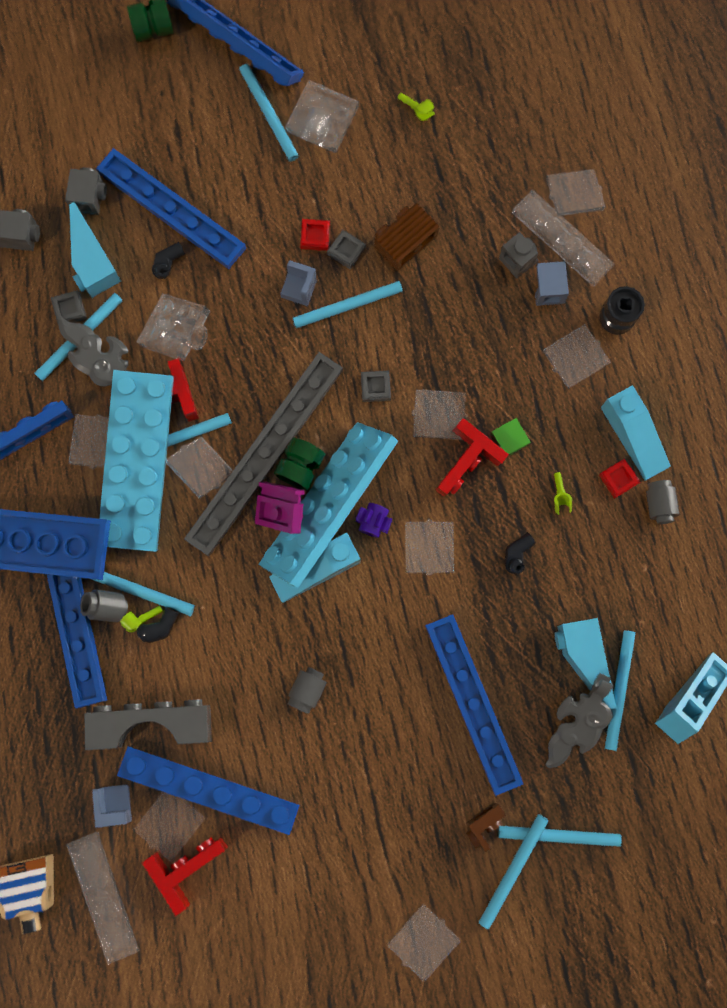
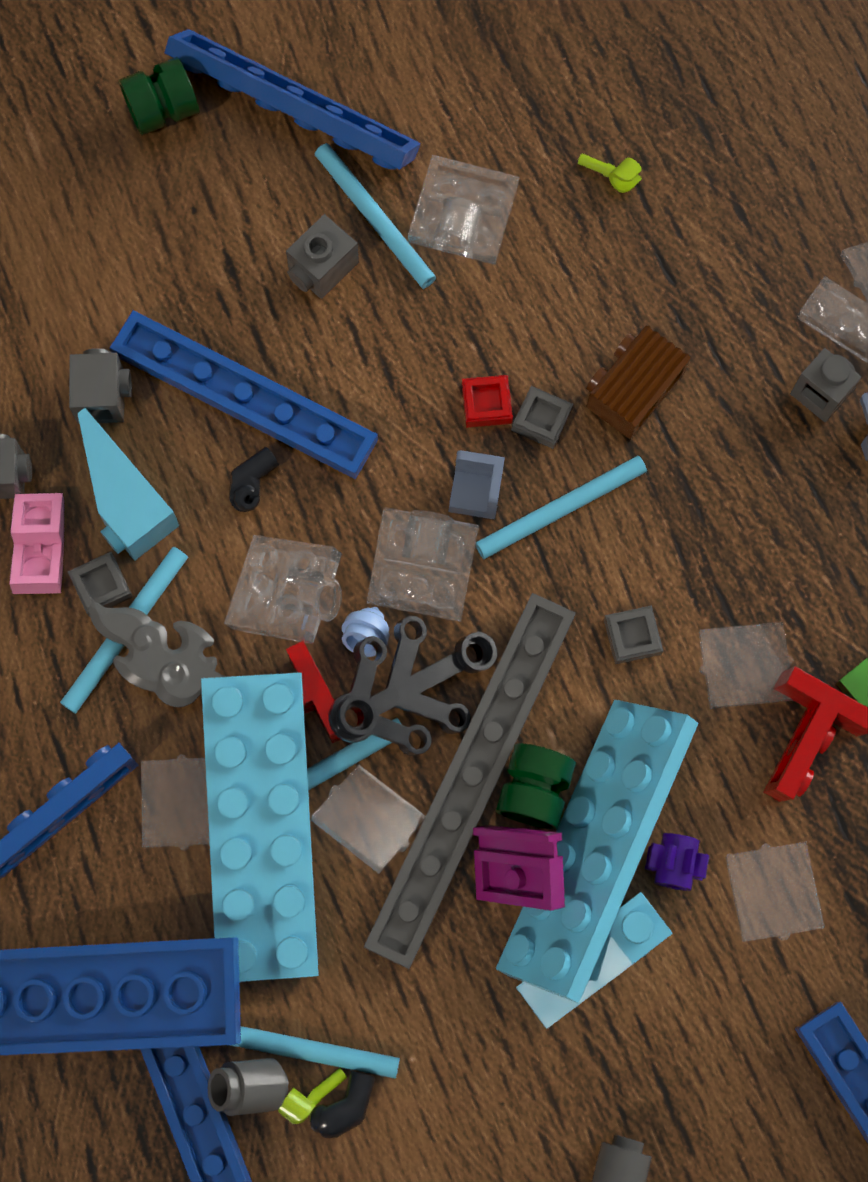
camera: 10 degrees left, 5 degrees down
(36, 279) = (38, 543): none -> bright pink slope
(217, 359) = (364, 624): none -> light blue plate
(231, 133) = (321, 257): none -> dark grey brick
(232, 396) = (404, 689): none -> black plant
(257, 324) = (422, 563): none -> clear plate

